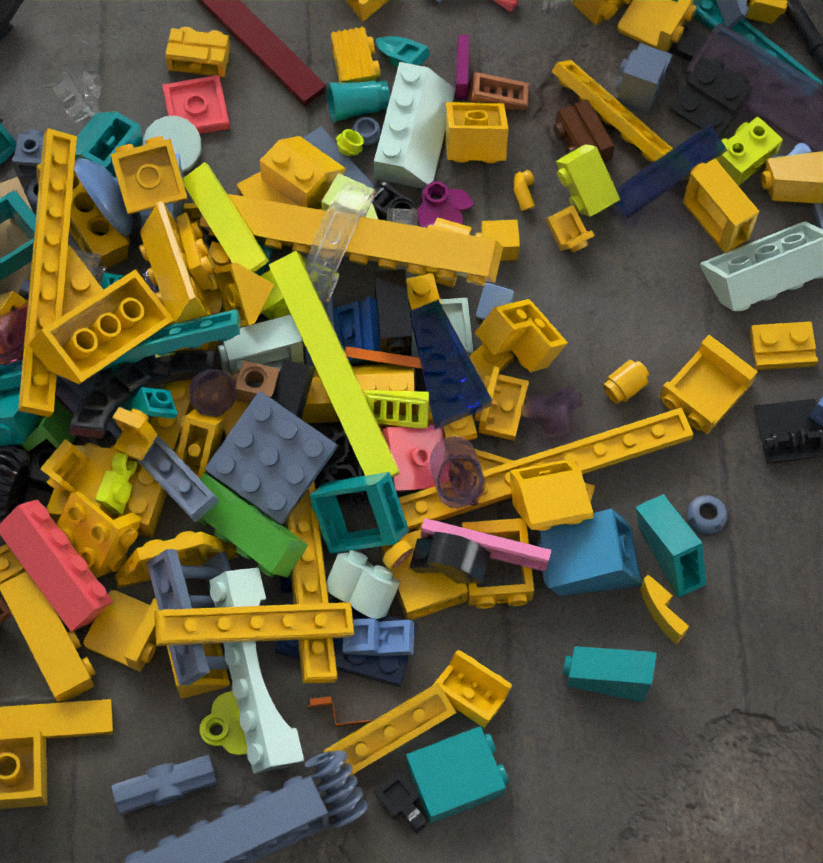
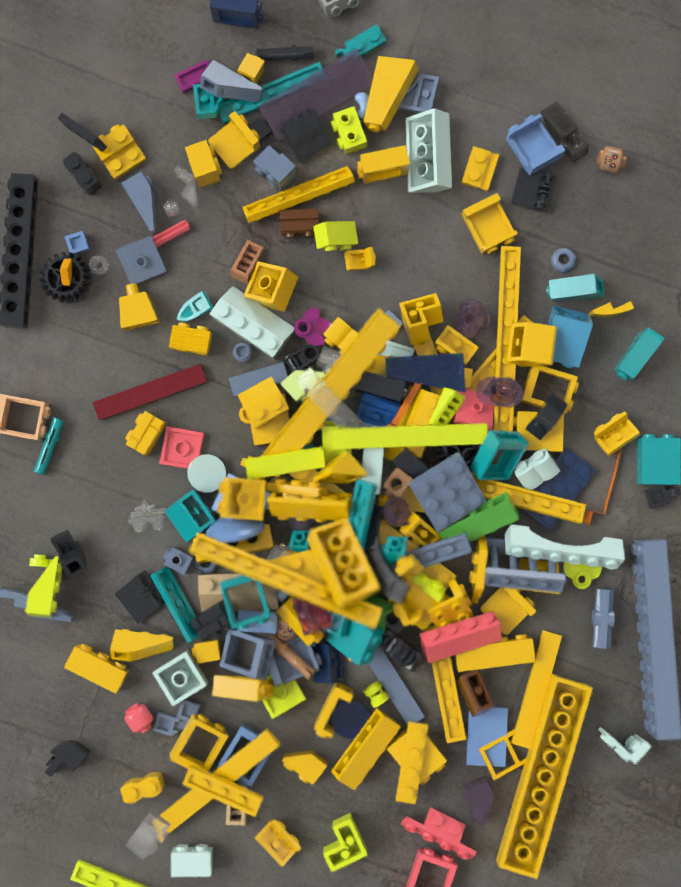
camera: 65 degrees left, 20 degrees up
(253, 623) = (546, 540): yellow tile -> none
(339, 787) = (644, 527): sand blue piece -> none
(350, 142) = (249, 365): neon yellow plate -> none
(356, 99) = (220, 349): teal plant -> none
(380, 638) = (569, 472): medium blue slope -> none
(395, 728) = (623, 487): yellow plate -> none
(398, 554) = (533, 446): yellow tile -> none
(462, 62) = (222, 275): magenta tile -> none
(499, 547) = (546, 392): bright pink tile -> none
(506, 233) = (350, 304): yellow brick -> none
(521, 189) = (318, 275): yellow arm -> none
(626, 381) = (468, 269): yellow brick -> none
(669, 170) = (348, 183): clear blue tile -> none

